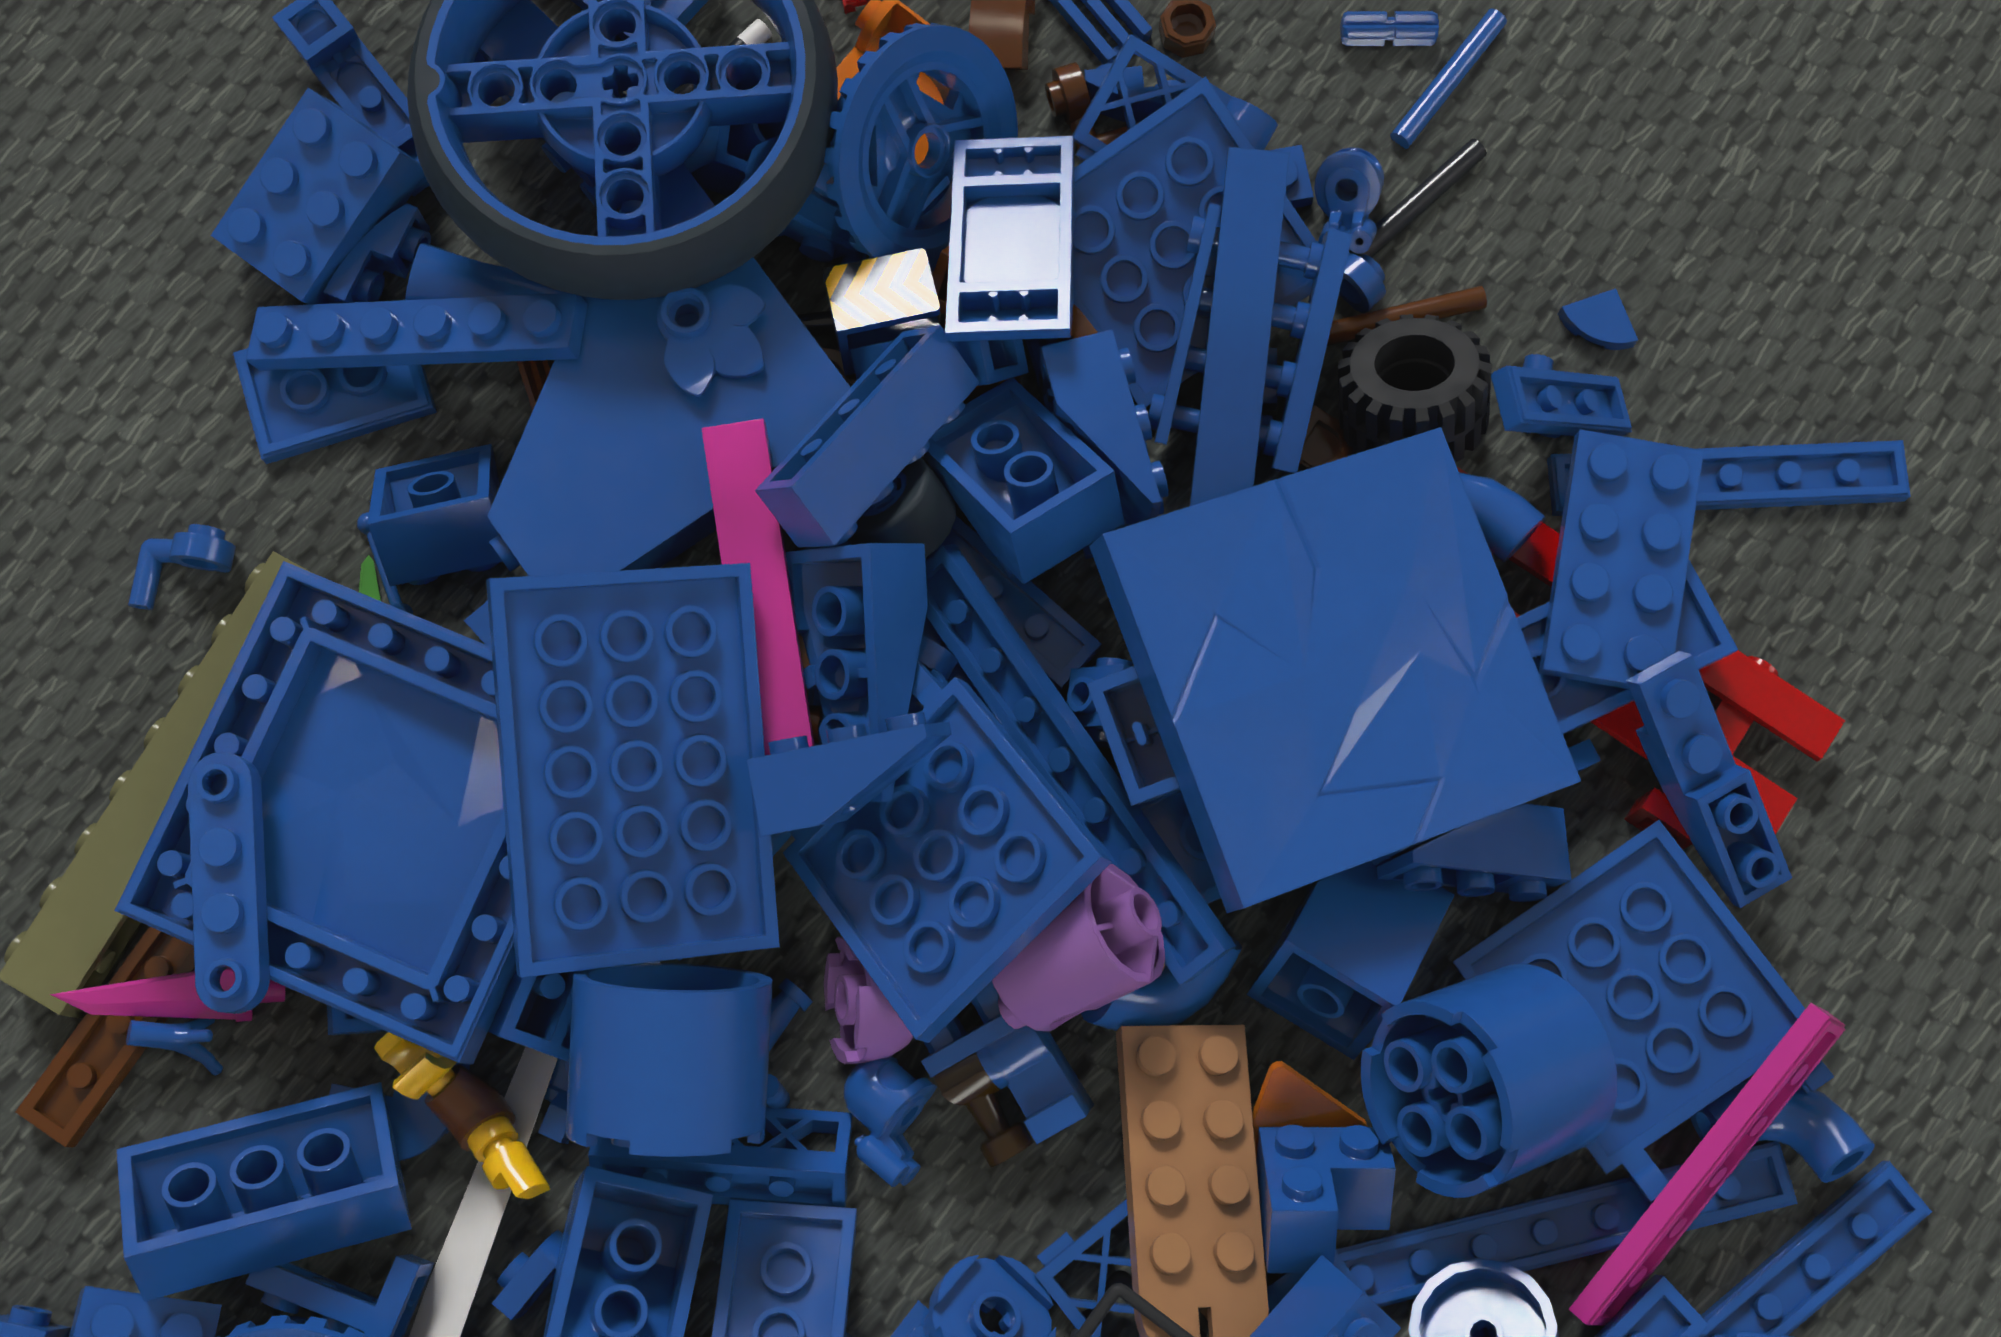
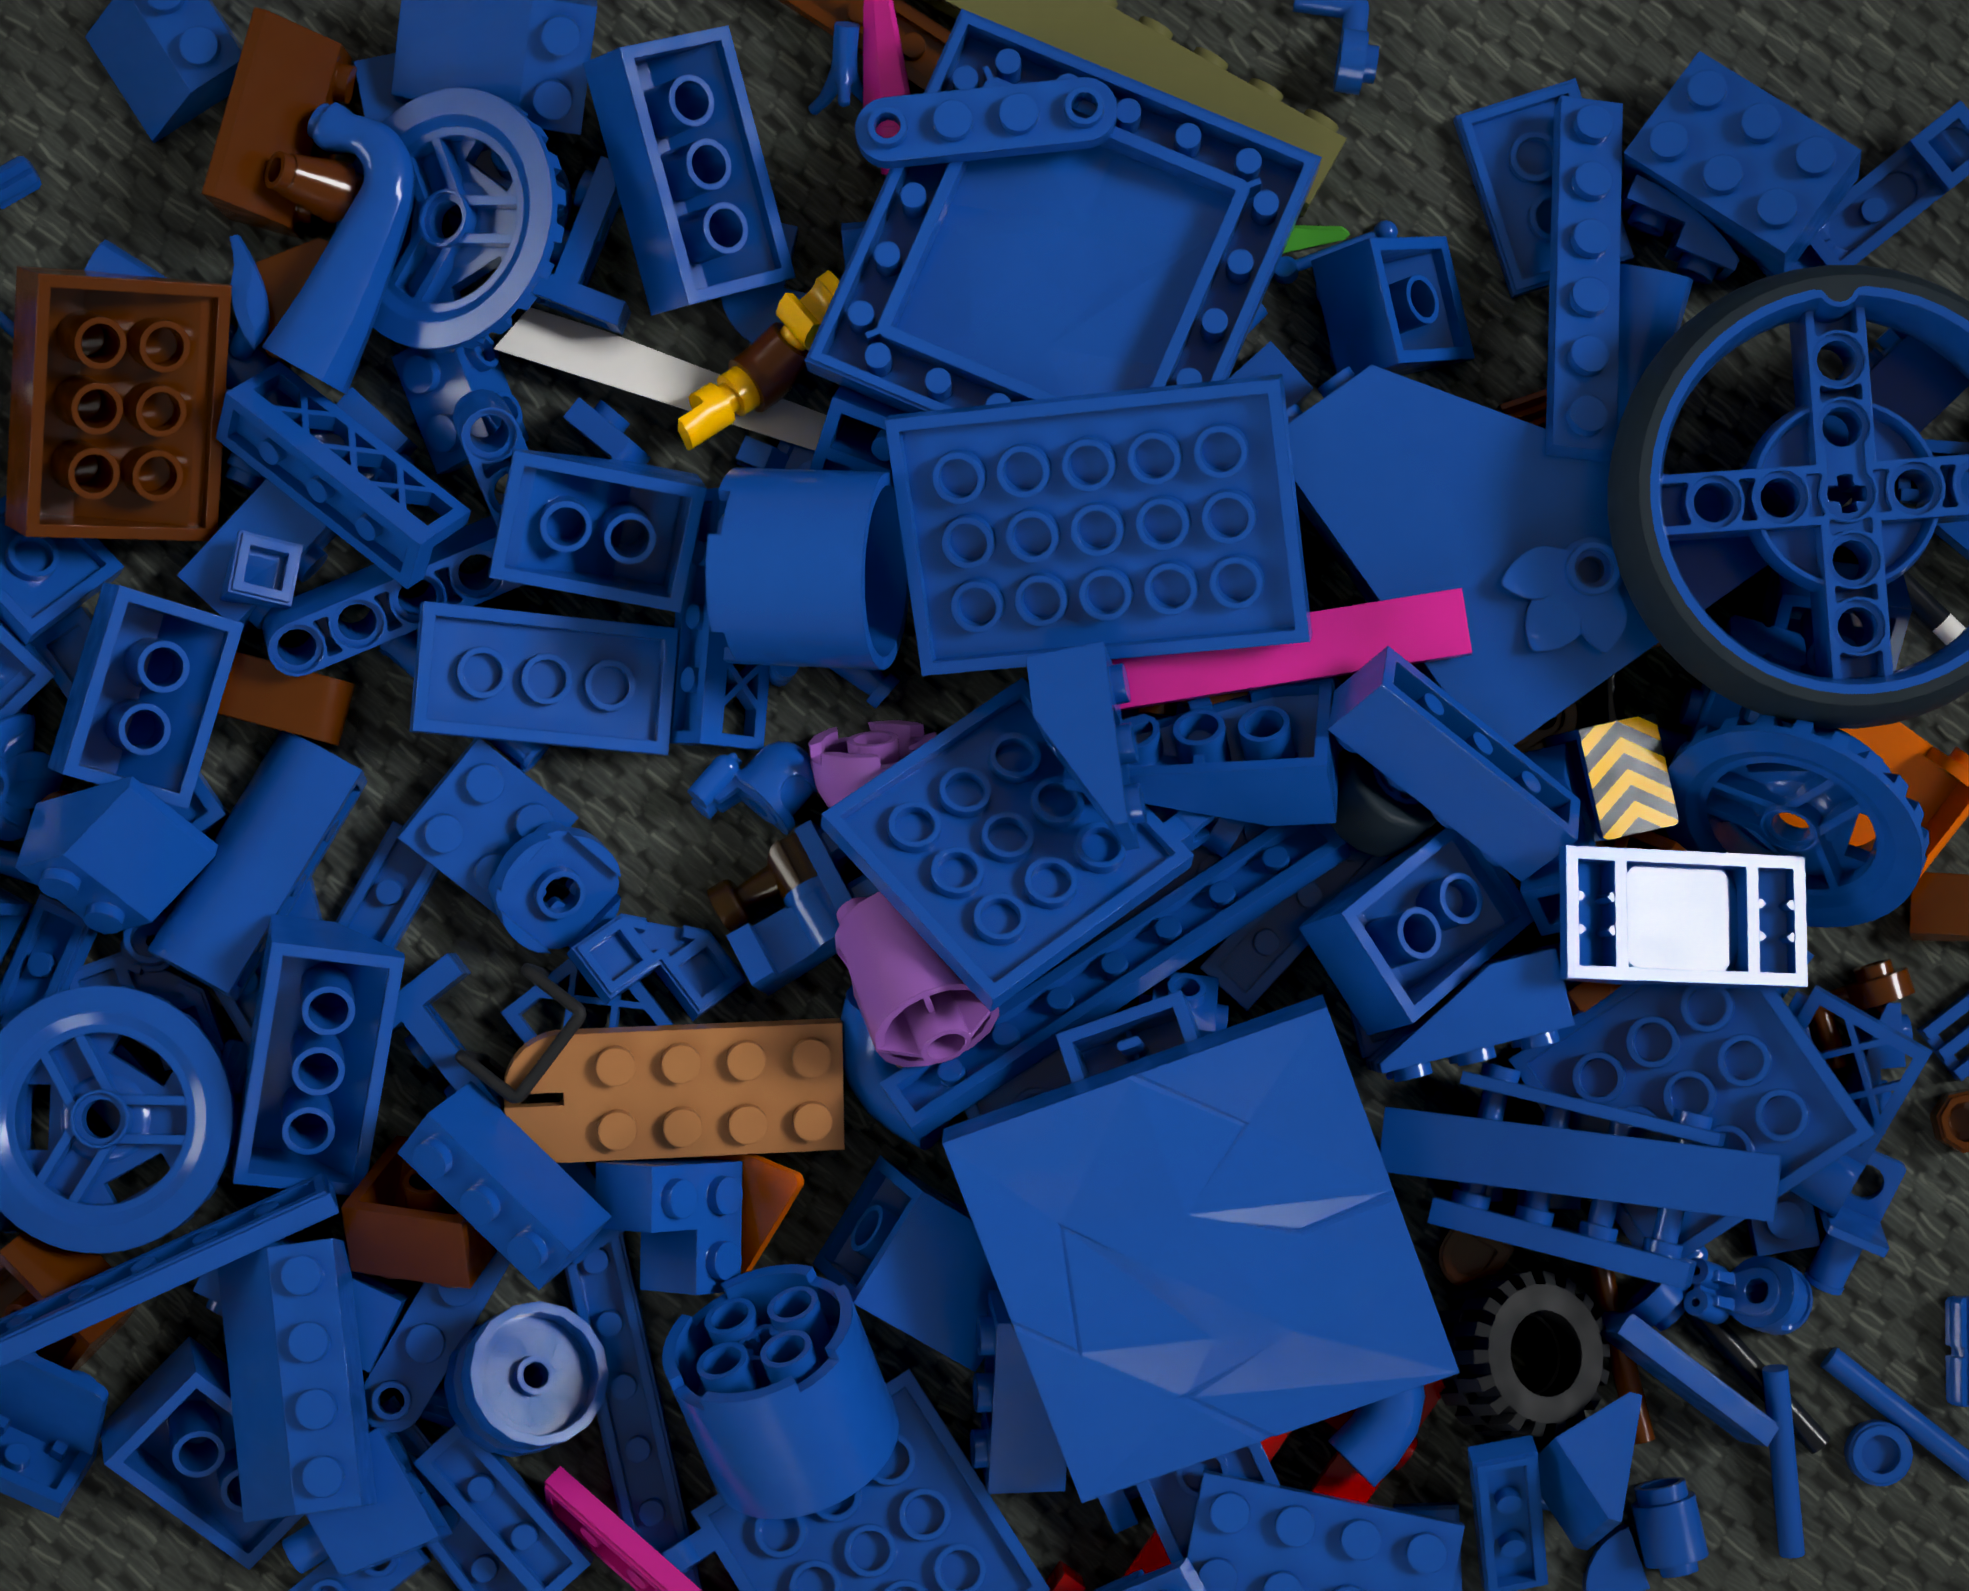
camera: 90 degrees right, 10 degrees up
(1058, 1191) = (684, 959): none -> blue tile
(1292, 116) = (1854, 1229): none -> blue bracket
(1427, 251) = (1688, 1378): none -> blue tile
(1482, 99) = (1878, 1452): none -> blue tile
(1495, 175) = (1784, 1462): none -> blue bar
(1520, 321) = (1589, 1470): none -> blue slope
(1560, 270) = (1669, 1527): none -> blue brick

